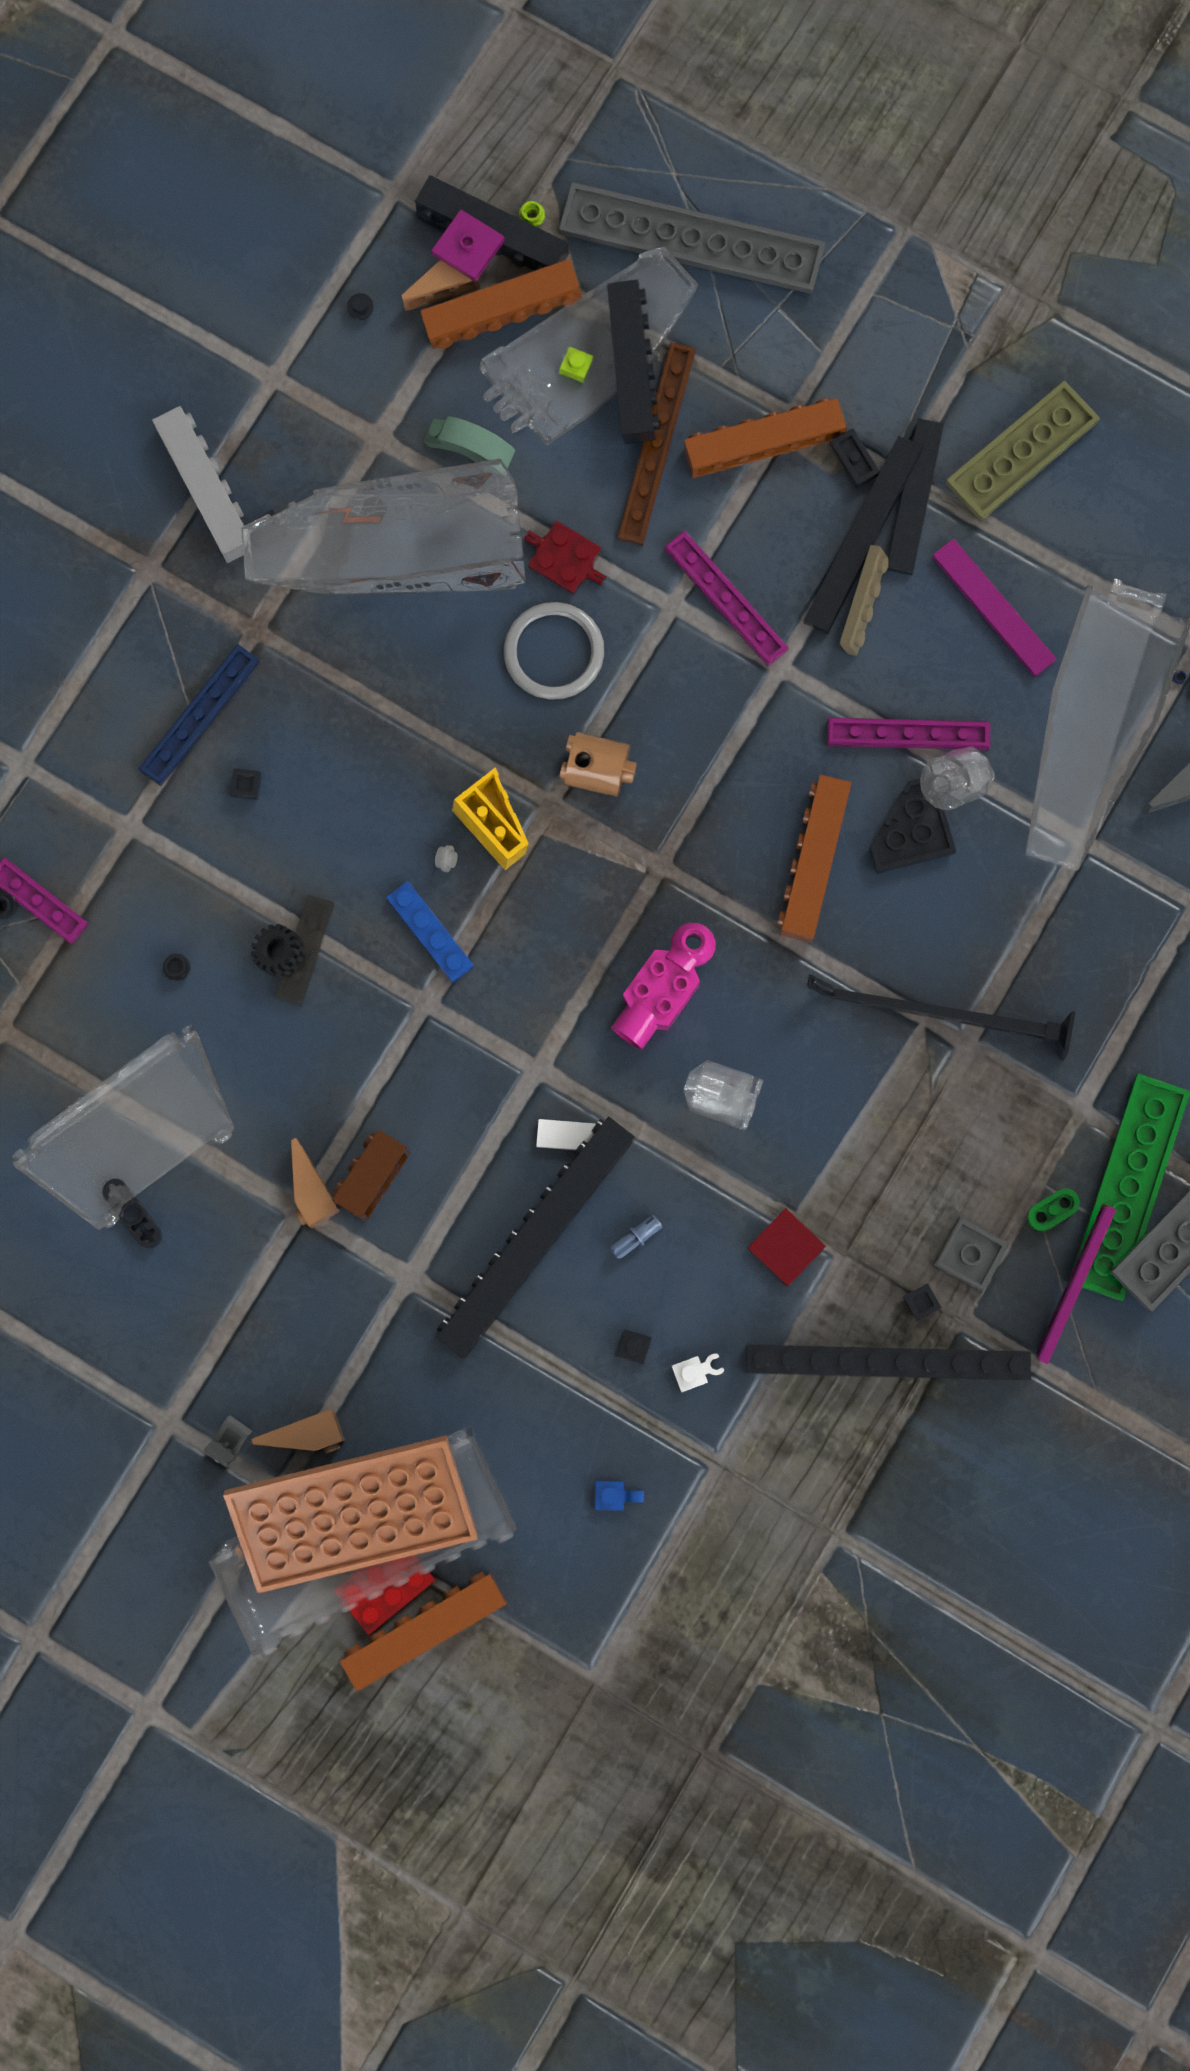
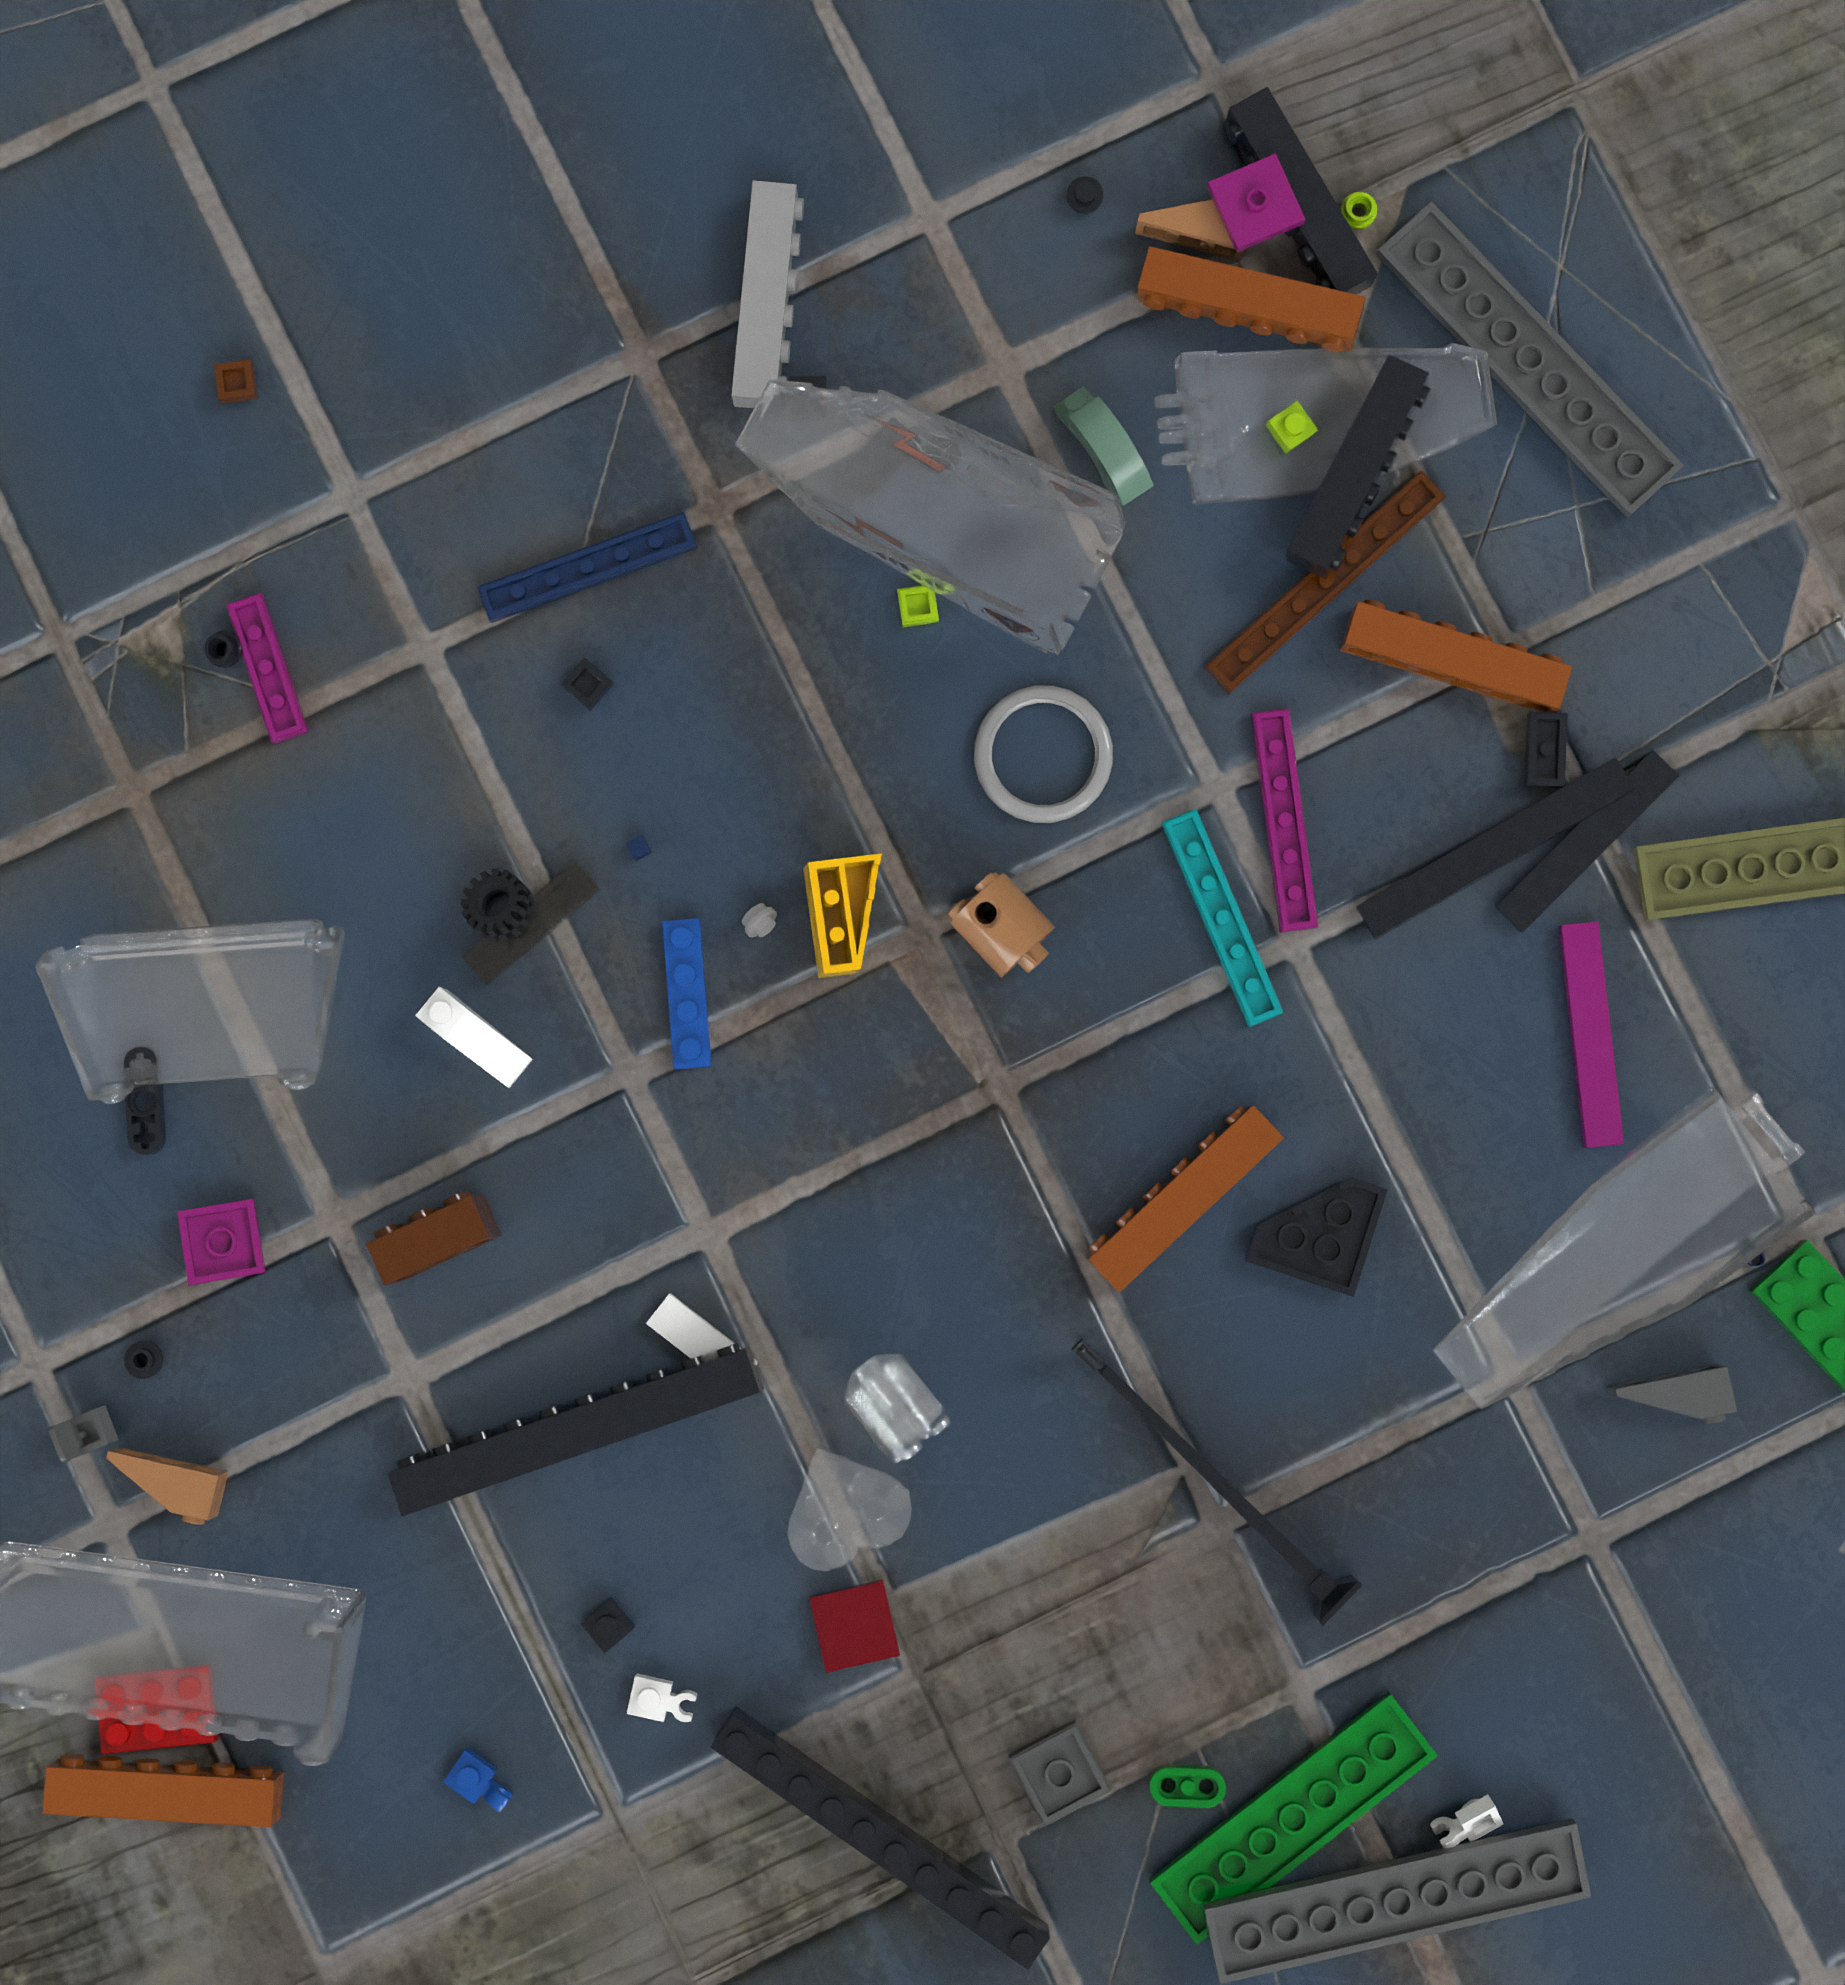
camera: 35 degrees right, 5 degrees up
(176, 967) = (373, 848): black plate -> none
(238, 1268) = (221, 1242): none -> magenta plate
(244, 1372) = (154, 1355): none -> black plate
(310, 1192) = (359, 1204): medium nougat slope -> none
(314, 1040) = (473, 1036): none -> white slope
(342, 863) = (638, 848): none -> dark blue piece
(351, 1514) = (157, 1618): nougat plate -> none
(418, 610) = (917, 606): none -> lime tile
(565, 557) = (1128, 651): dark red plate -> none
(636, 1236) = (690, 1502): sand blue axle -> none
(663, 986) = (910, 1235): dark pink brick -> none
(727, 679) = (1222, 918): none -> teal tile
(733, 1178) = (845, 1509): none -> clear plate
(866, 592) = (1454, 920): dark tan plate -> none
(908, 733) = (1391, 1119): magenta tile -> none
(922, 1302) = (966, 1792): black plate -> none
(956, 778) = (1408, 1216): clear cylinder -> none
(1075, 1283) = (1154, 1892): magenta tile -> none

